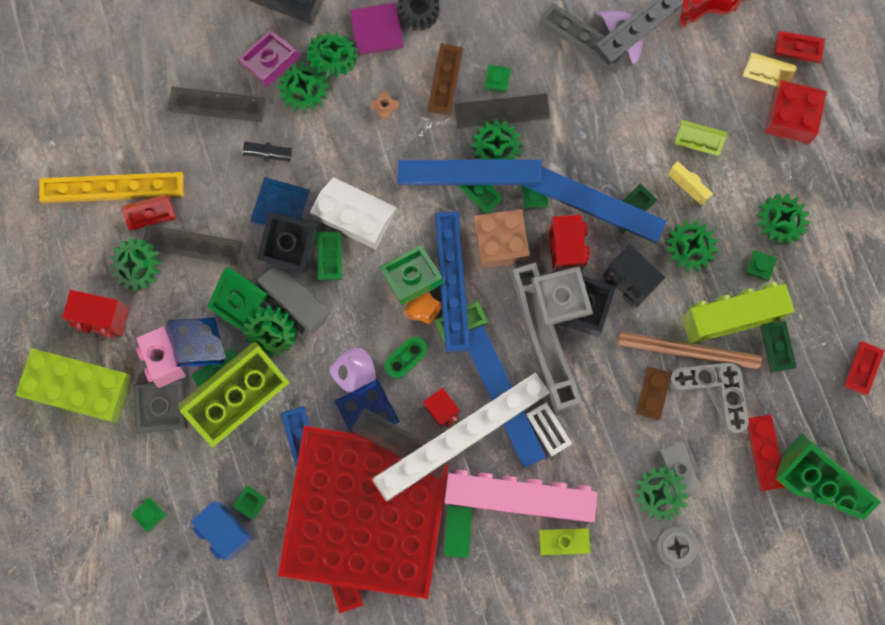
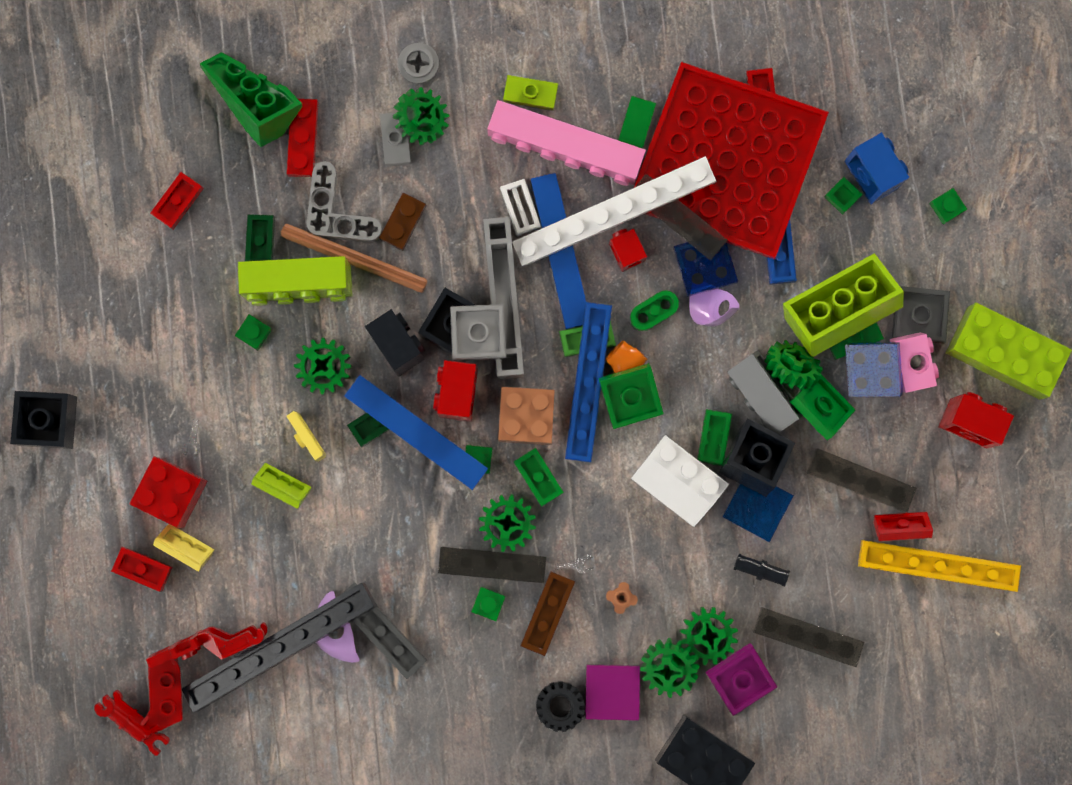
camera: 165 degrees left, 5 degrees up
(124, 261) = (926, 469): green gear -> none
(469, 172) = (545, 495): blue tile -> none
(788, 227) = (221, 386): green gear -> none

